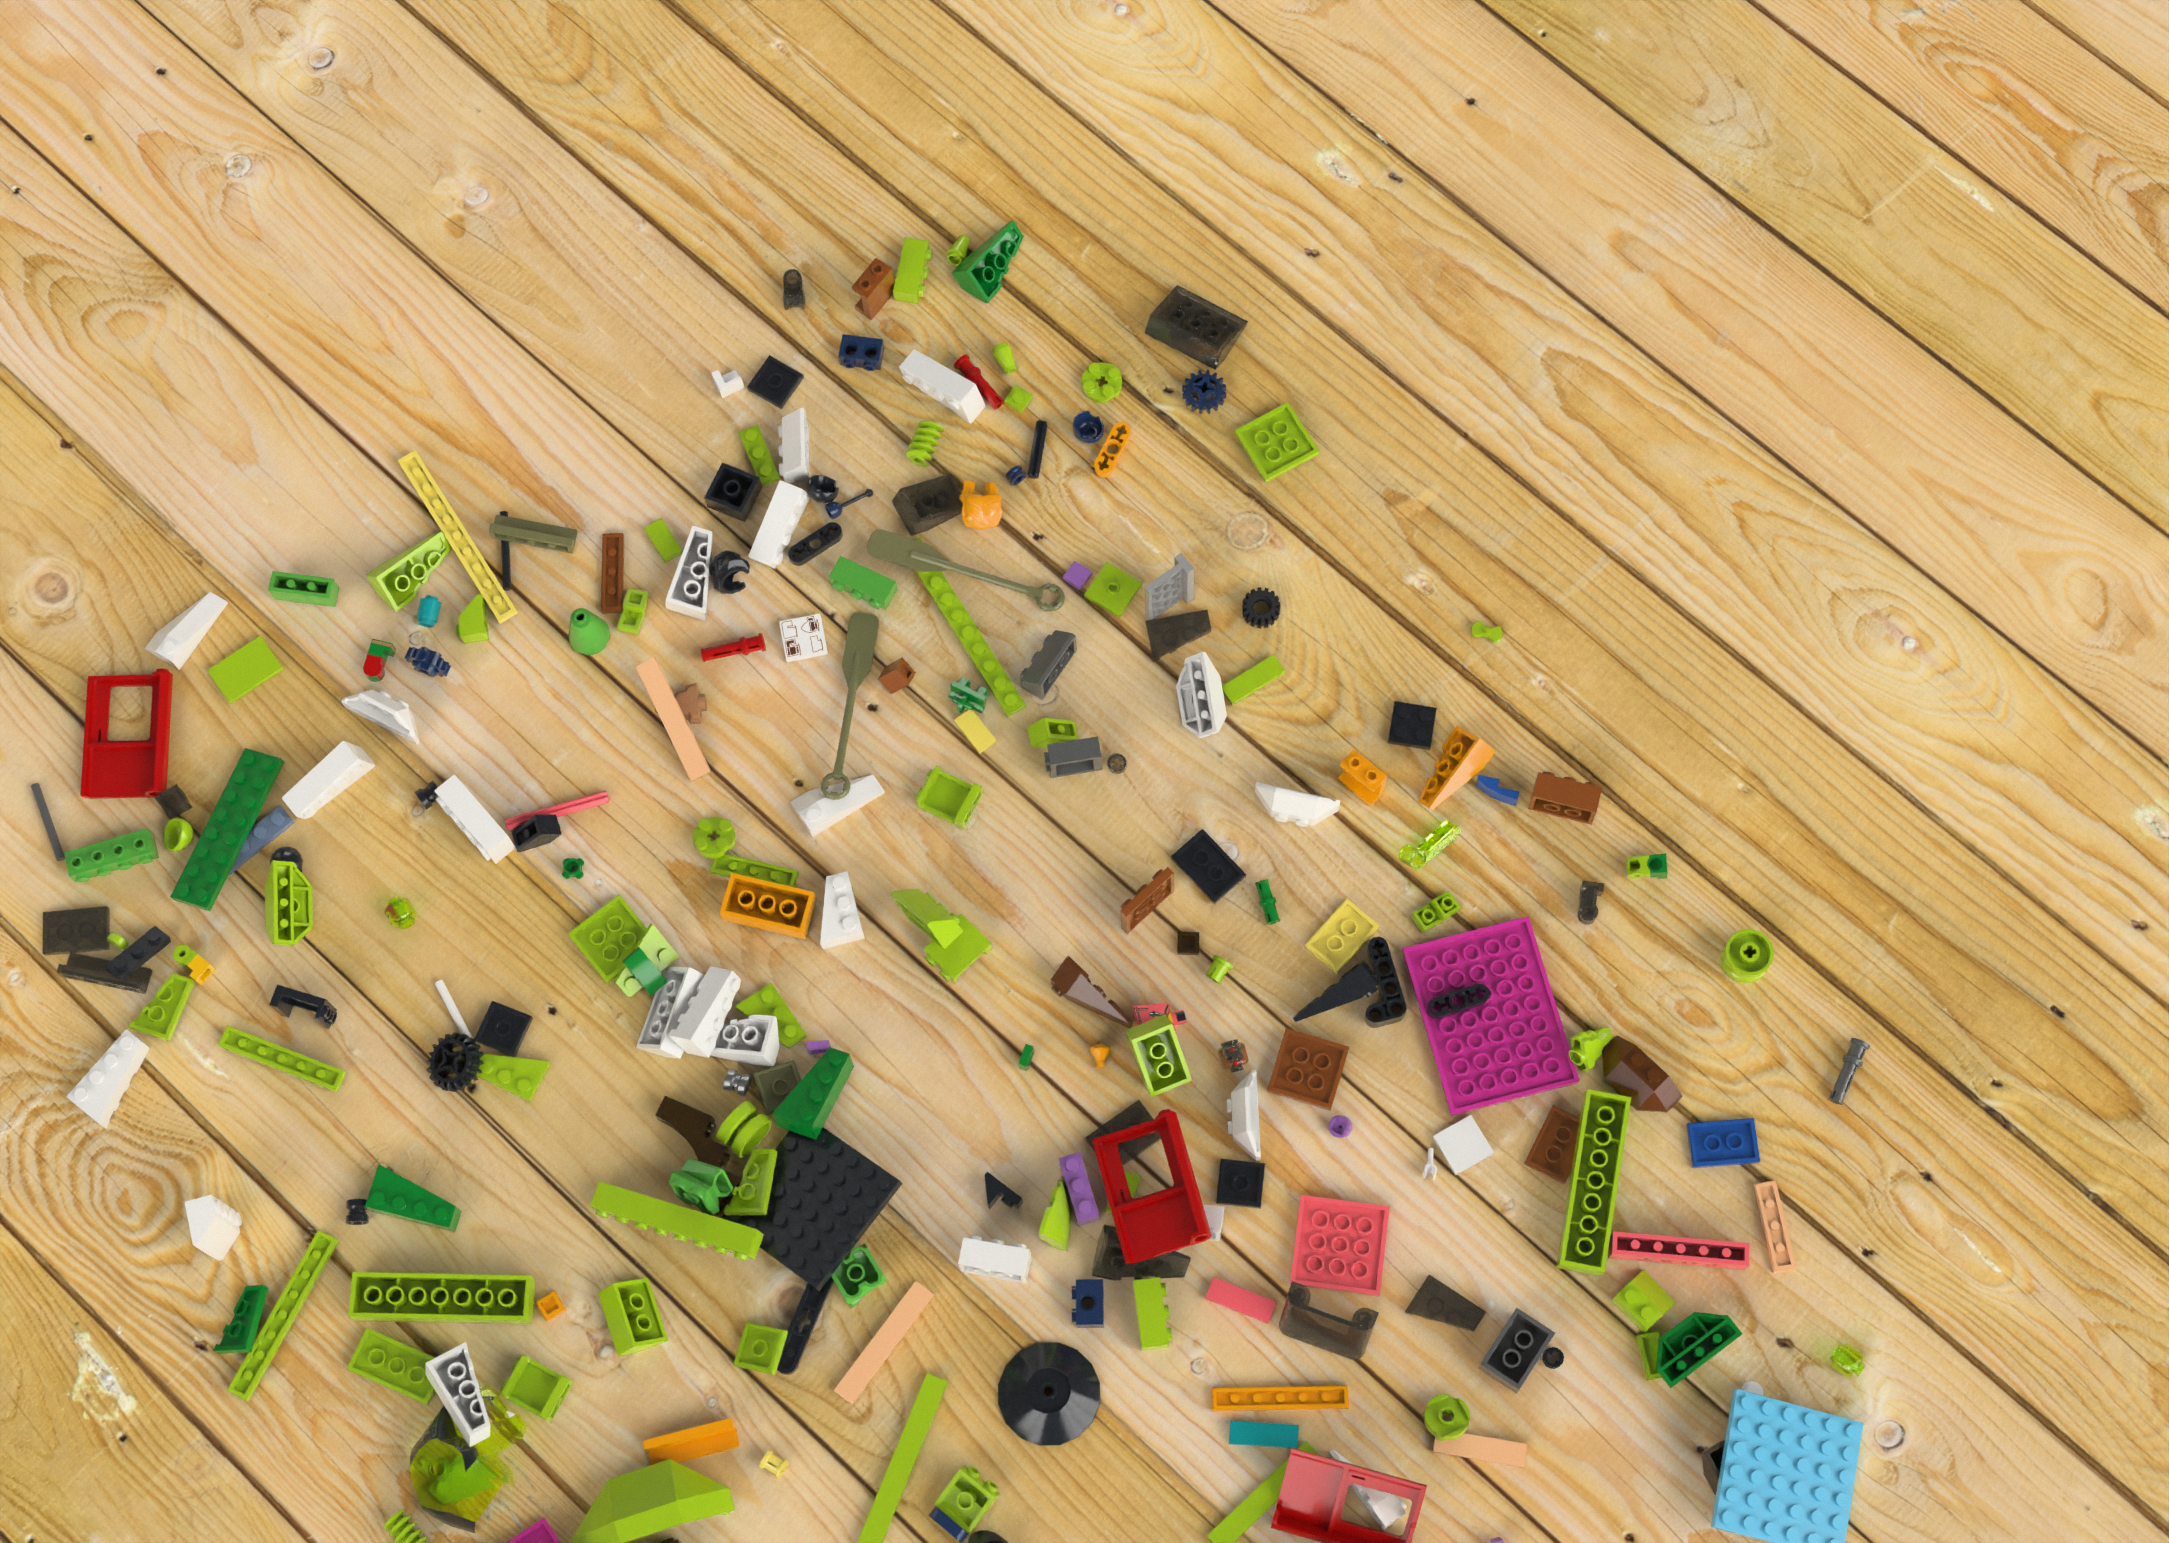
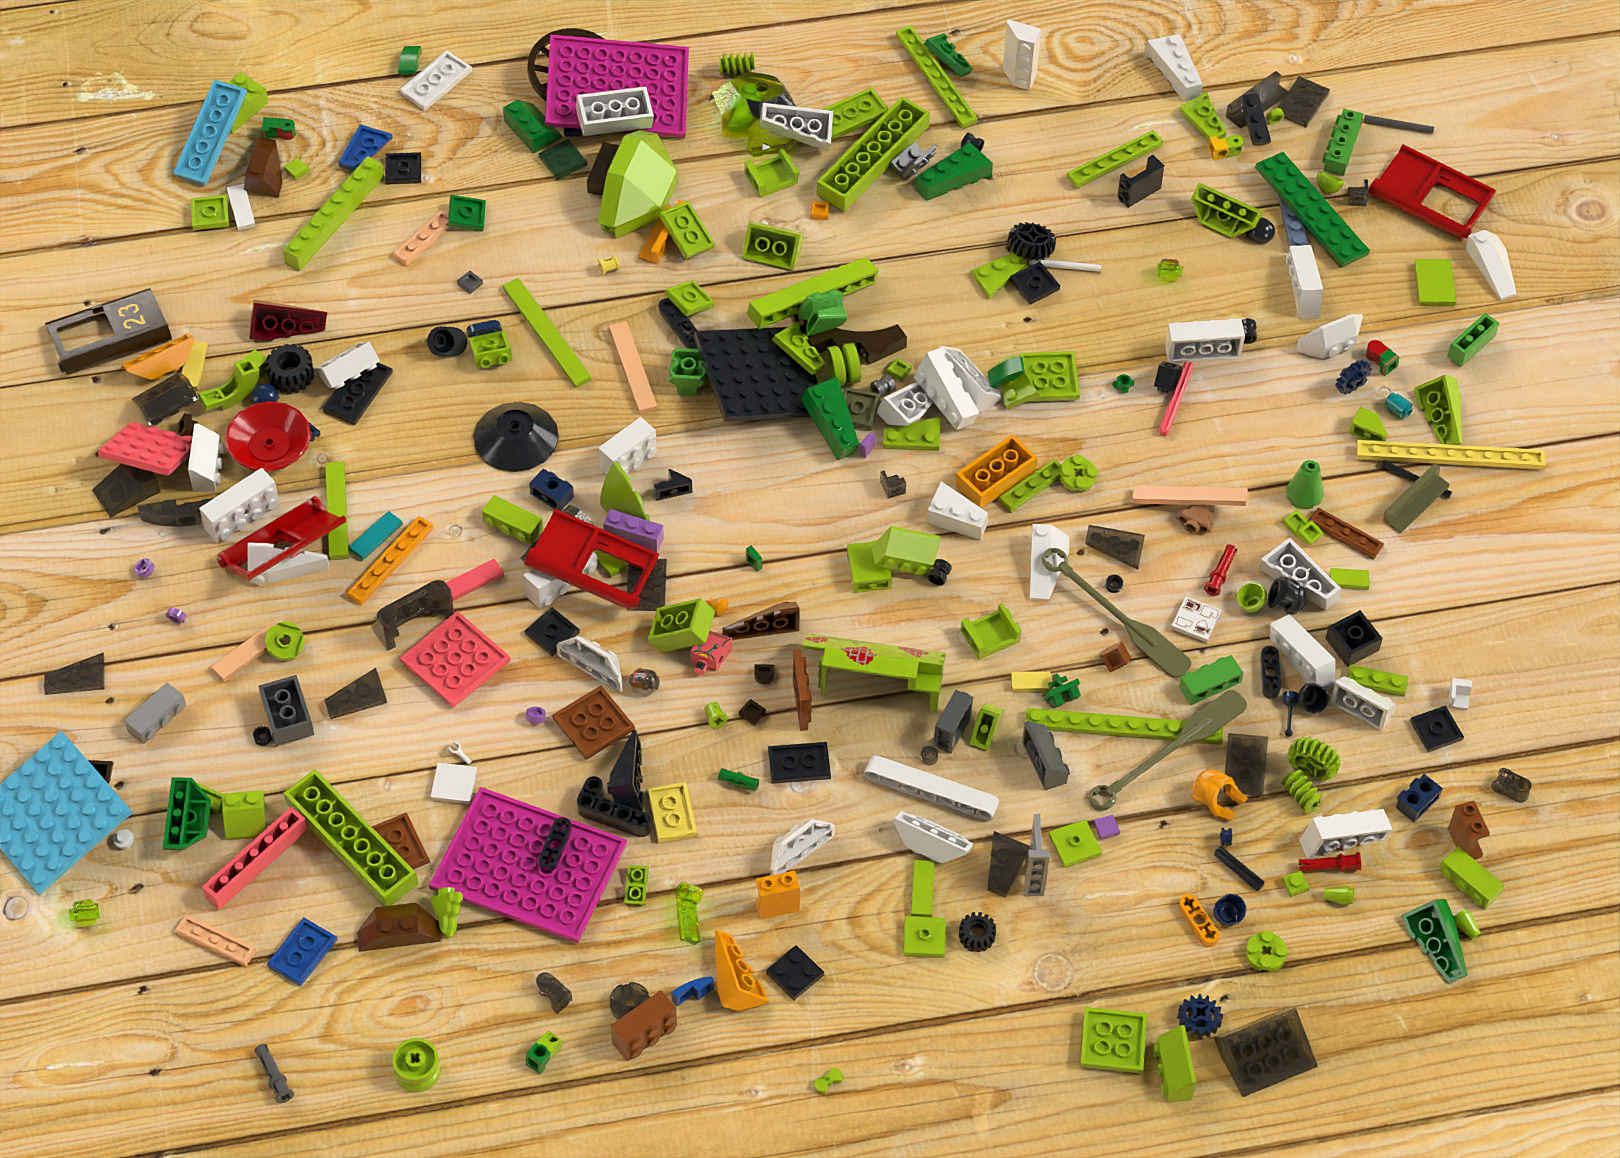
camera: 120 degrees right, 15 degrees down
(423, 1250) = (911, 160): none -> flat silver bracket
(677, 1412) = (687, 230): none -> lime tile
(702, 1085) = (899, 369): none -> lime tile
(749, 600) = (1251, 597): none -> lime piece
(769, 751) = (1116, 543): none -> clear smoke wing
(813, 736) = (1116, 578): none -> black bush
(847, 994) = (892, 485): none -> clear smoke panel
(889, 447) = (1314, 758): none -> lime gear
(918, 881) = (939, 573): none -> black wheel
(1068, 857) = (919, 666): none -> lime panel
(1140, 962) = (763, 673): none -> dark brown tile
(1151, 737) = (931, 787): none -> white beam
(1266, 378) = (1175, 1065): none -> lime slope
(1296, 647) = (924, 936): none -> lime plate
(1555, 824) = (627, 992): none -> clear smoke plate
(1611, 1473) = (155, 713): none -> light grey brick

